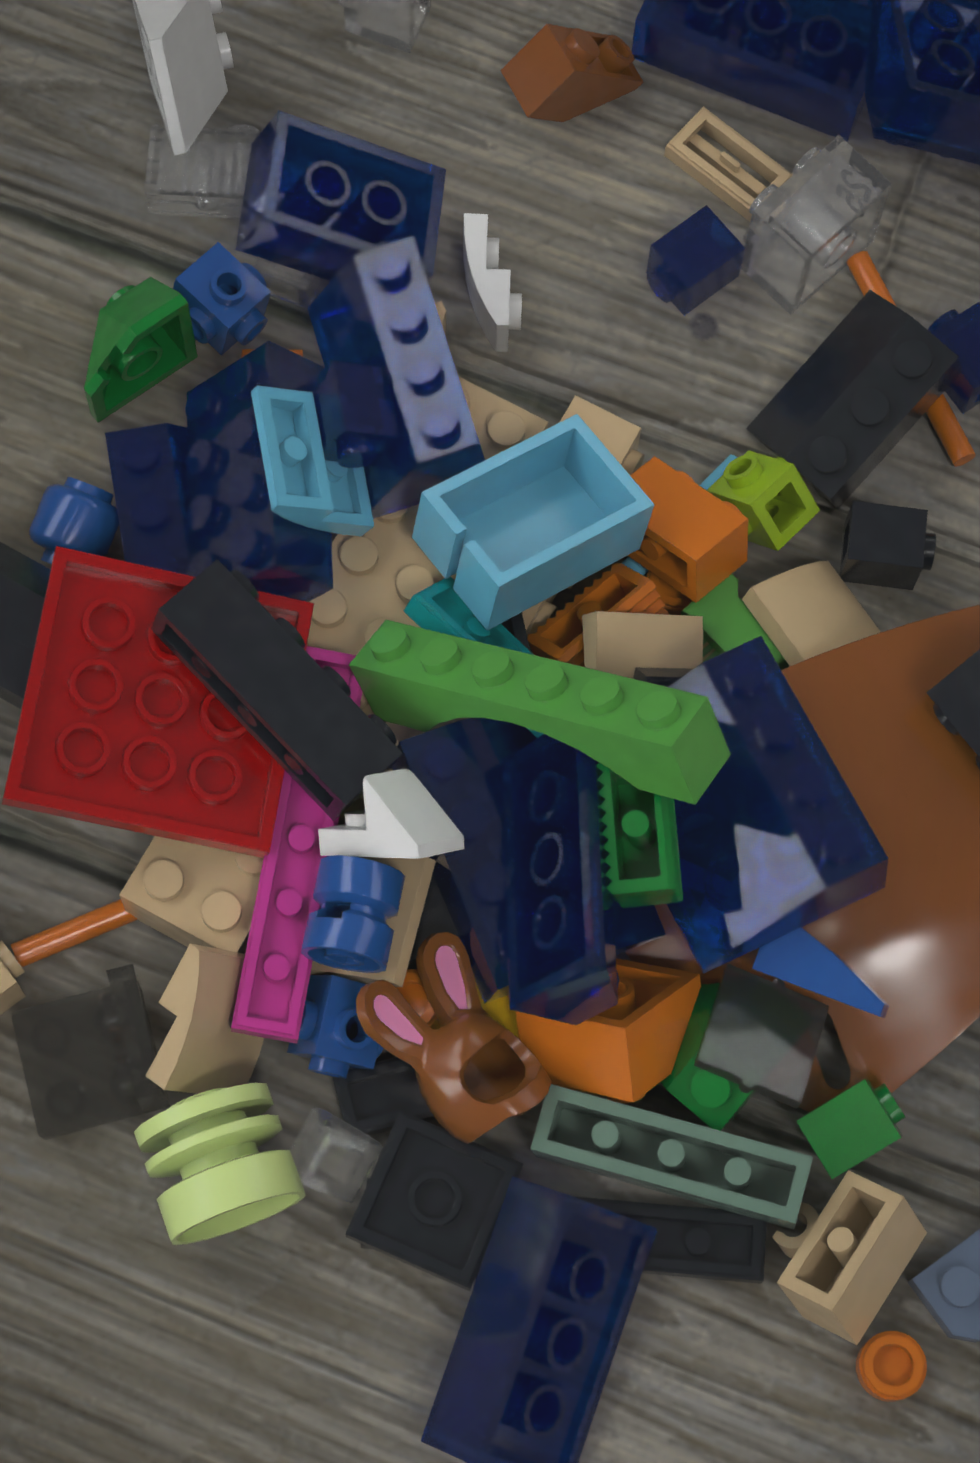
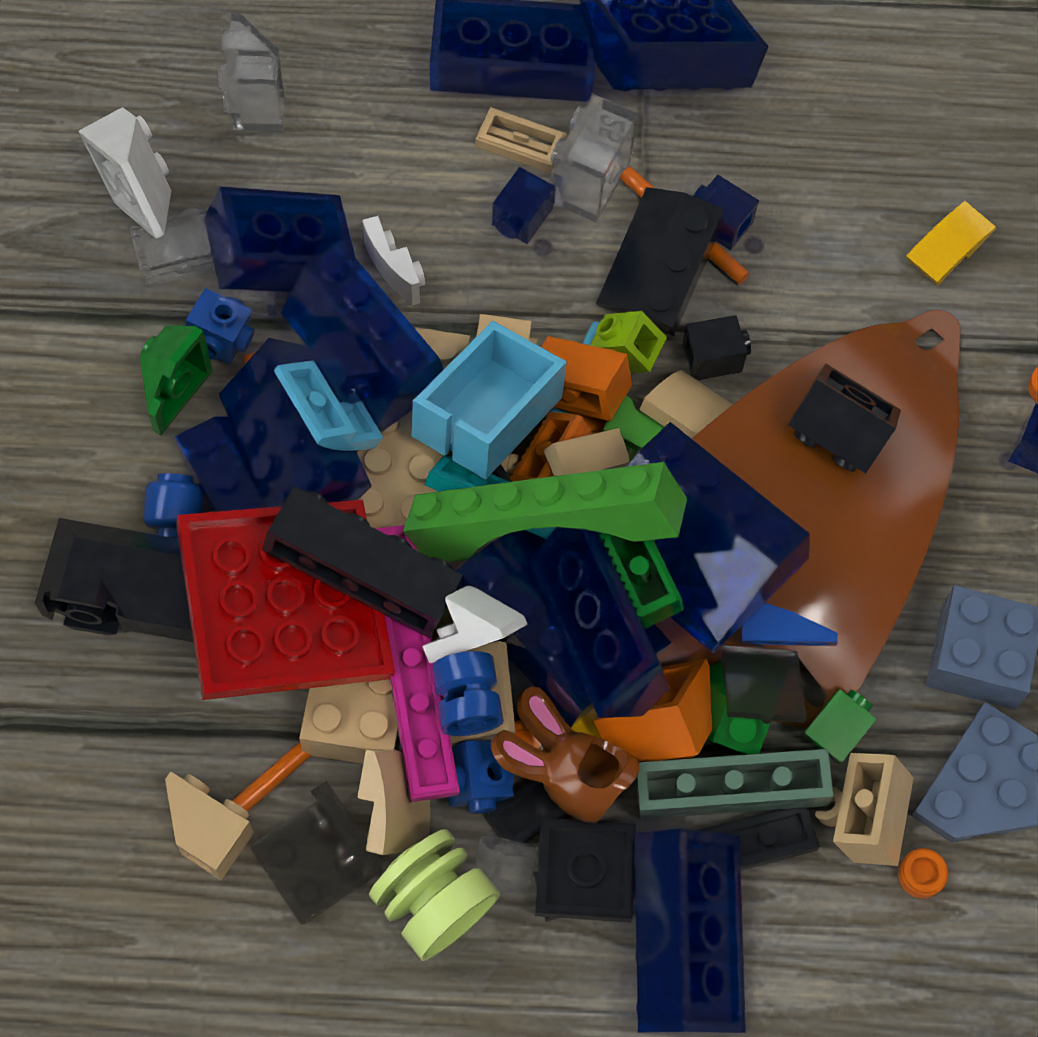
camera: 20 degrees left, 5 degrees down
(570, 72) = (395, 110): dark orange slope -> none

